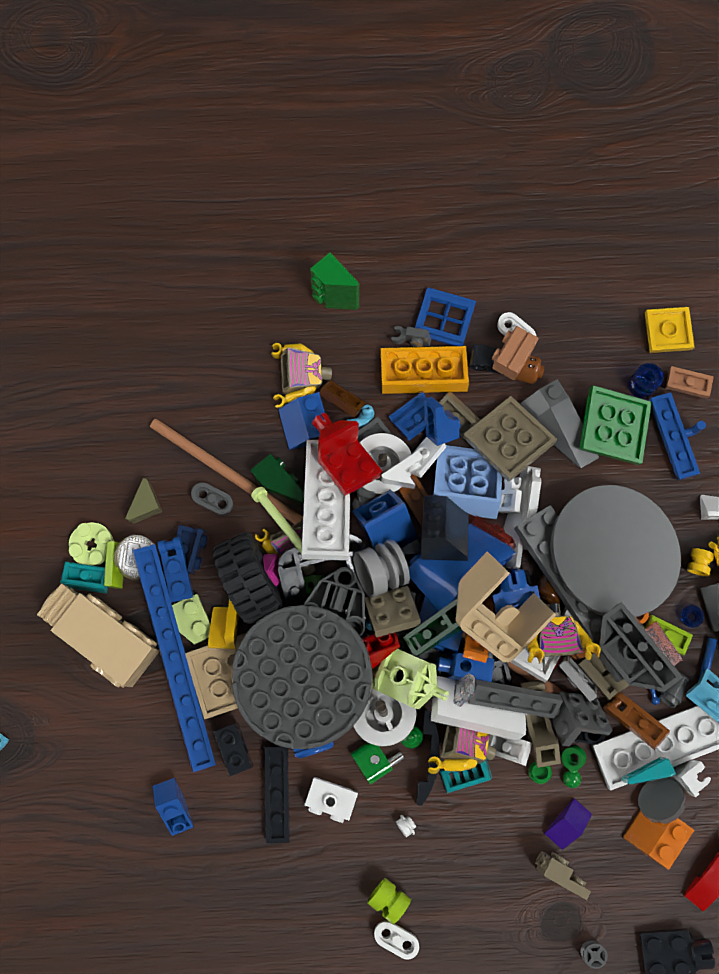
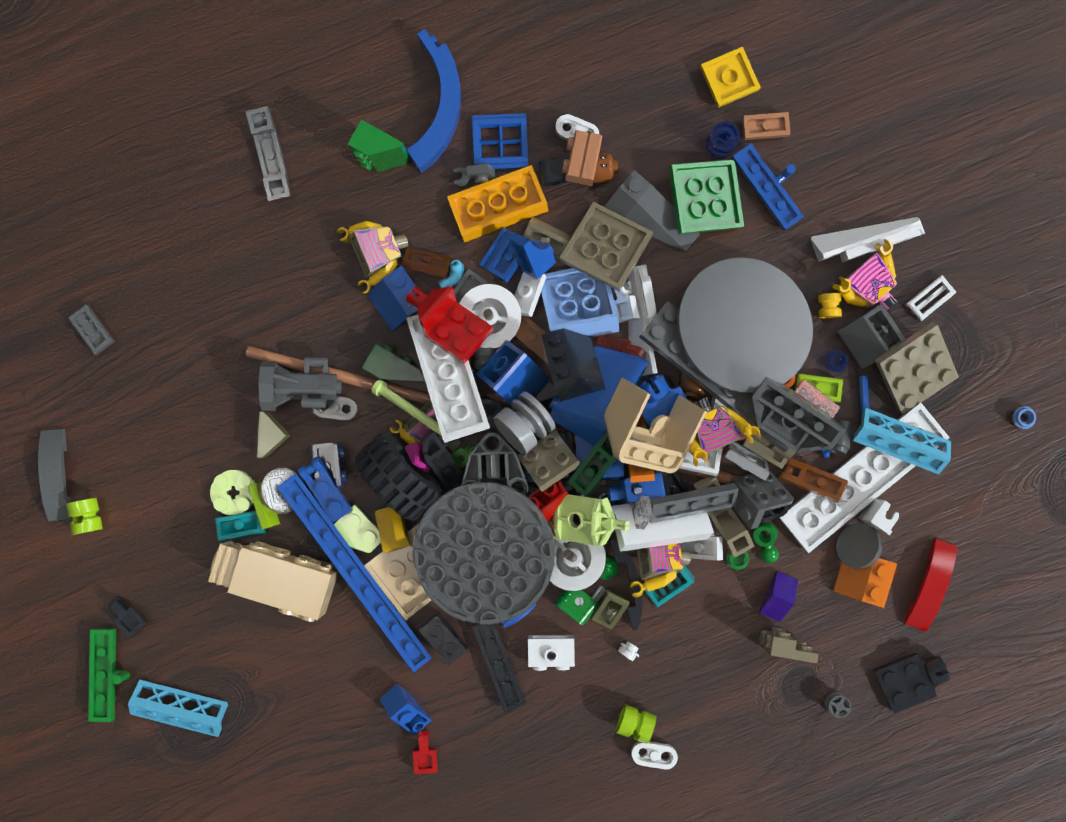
camera: 20 degrees left, 10 degrees up
(23, 357) = (91, 329): none -> dark grey plate
(170, 460) = (280, 385): none -> dark grey piece
(174, 860) = (424, 757): none -> red plate
(237, 260) = (269, 153): none -> dark grey slope
(398, 474) = (508, 323): white slope -> none
(400, 286) = (439, 135): none -> blue arch
(401, 778) = (610, 608): none -> olive slope
(653, 770) = (844, 521): teal slope -> none

